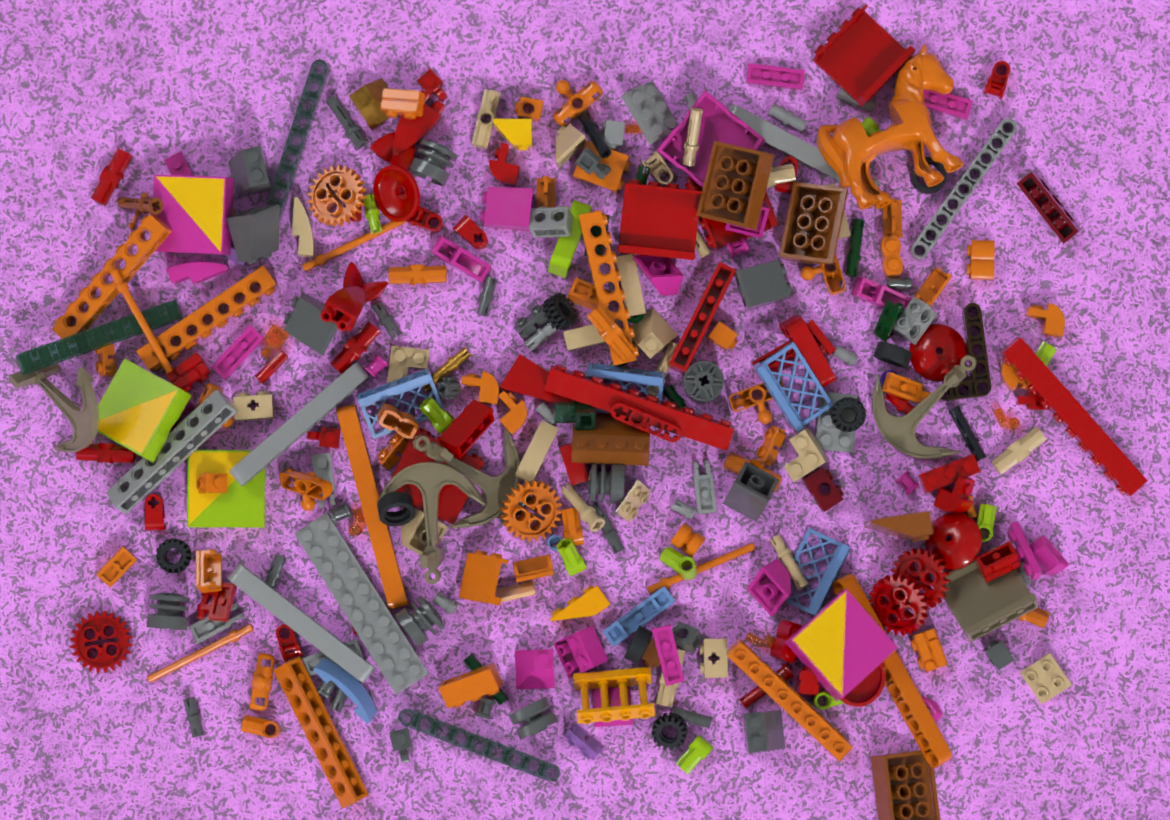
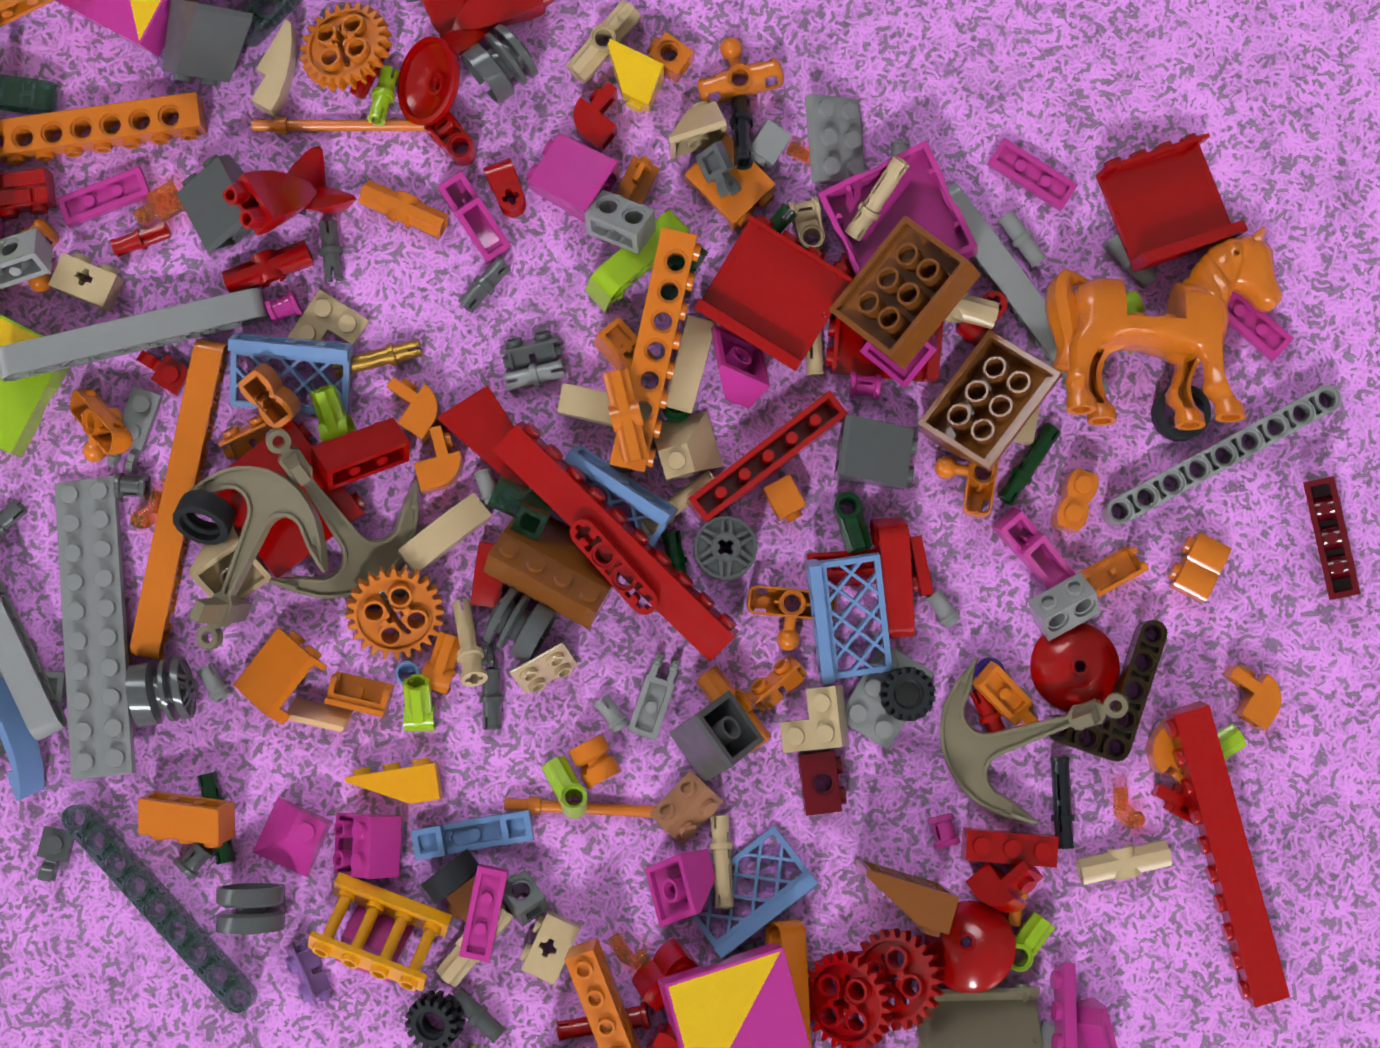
camera: 20 degrees right, 0 degrees up
(195, 271) = (101, 59): dark pink slope -> none
(449, 388) = (368, 385): dark grey gear -> none
(559, 311) = (572, 352): black tyre -> none
(753, 541) = (686, 808): none -> nougat bracket
(769, 333) = (852, 525): none -> dark green piece
(887, 319) = (1027, 586): dark green hinge -> none
(892, 219) = (1101, 449): orange hinge -> none
(892, 354) = (1011, 639): black tyre -> none
(899, 283) = (1073, 546): dark grey pin -> none
(997, 83) = (1339, 330): red piece -> none
(997, 562) = (1019, 1010): red brick -> none

